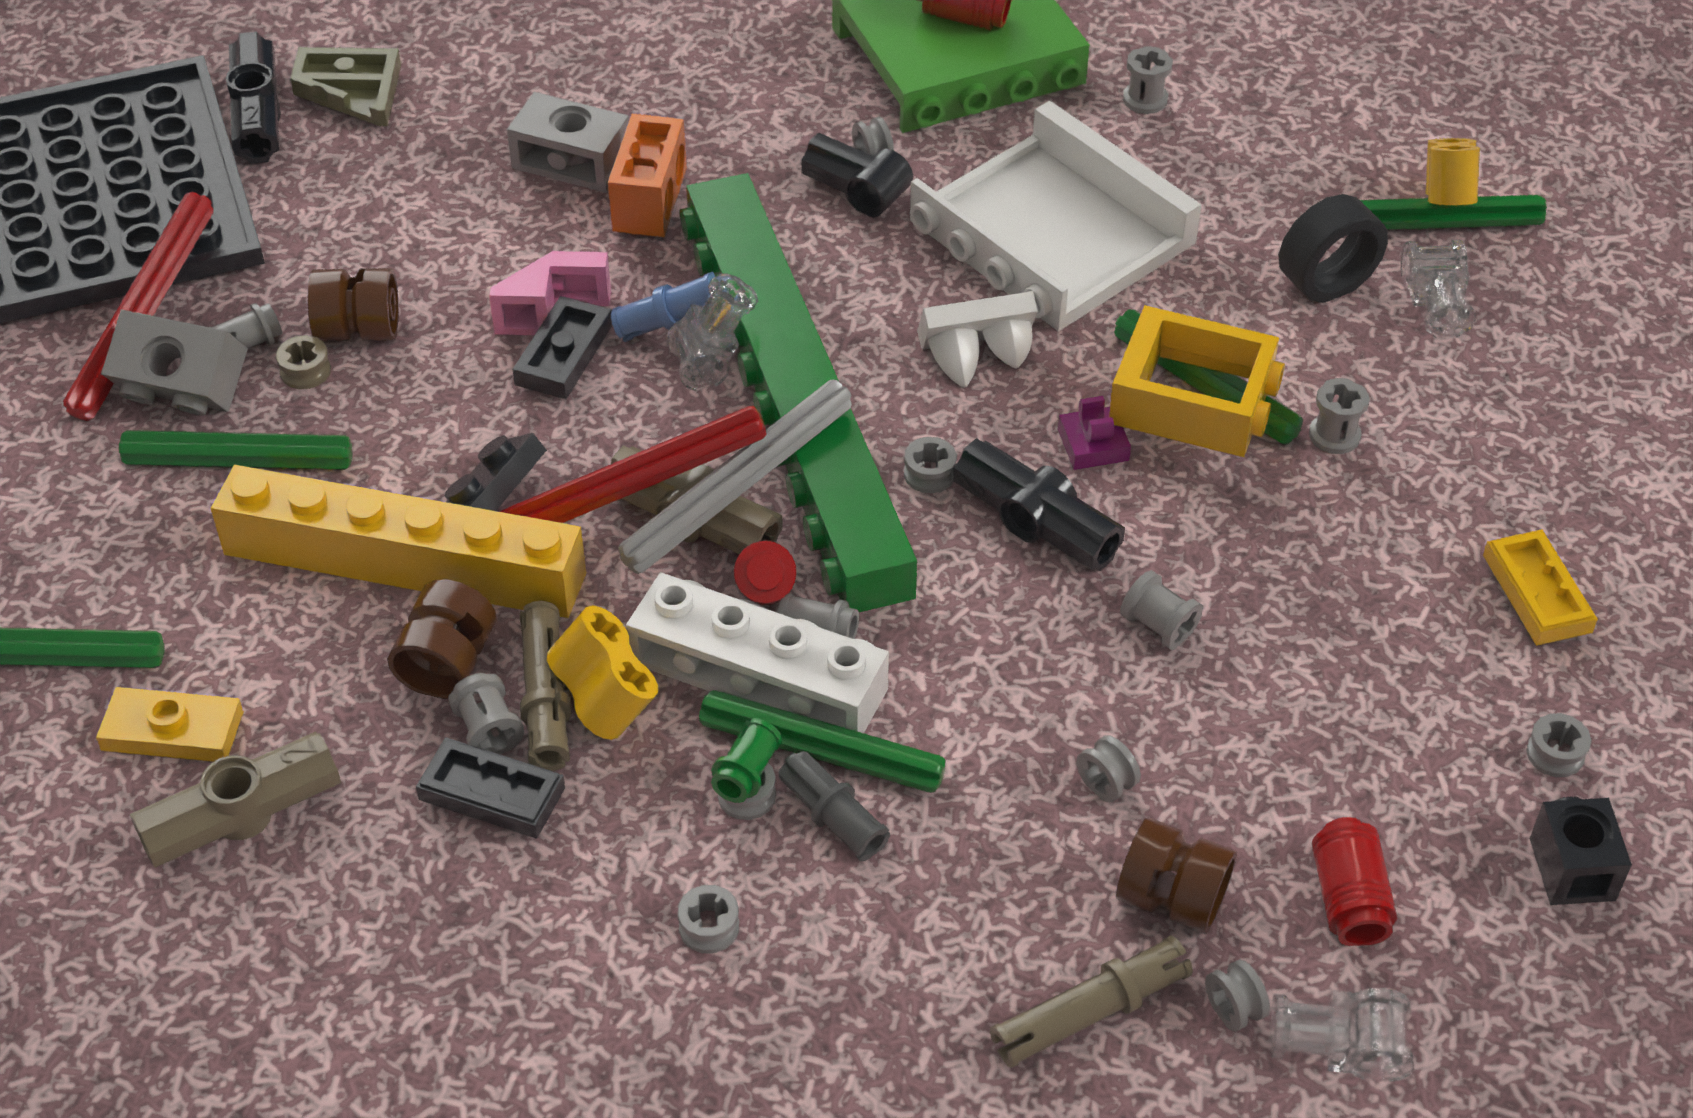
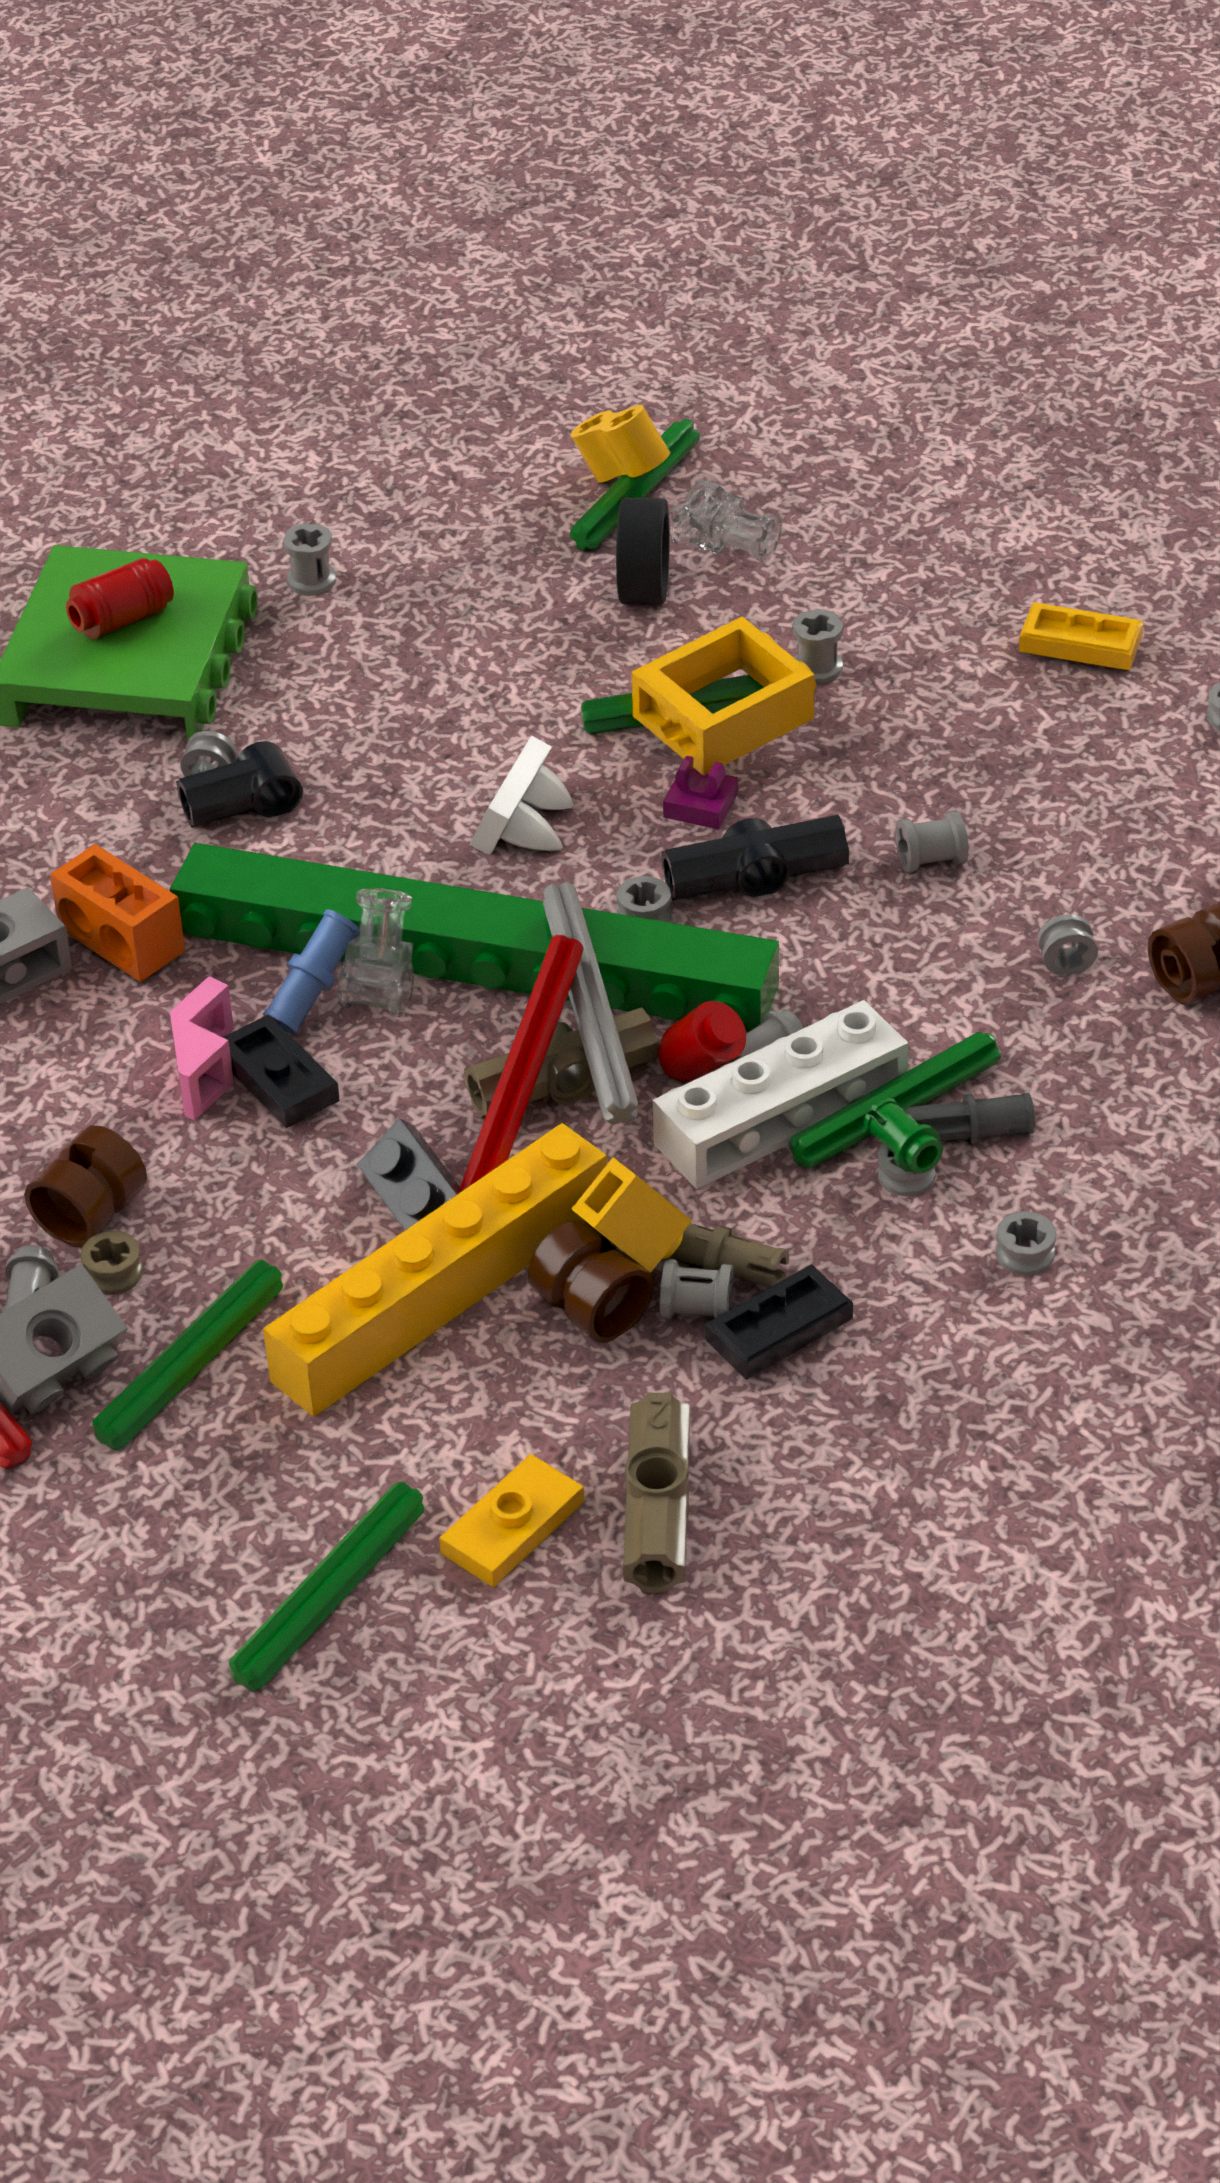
camera: 55 degrees left, 5 degrees down
(498, 622) = (632, 1215): none -> yellow brick
(602, 672) = (727, 1188): yellow axle -> none
(1059, 218) = (418, 691): white panel -> none

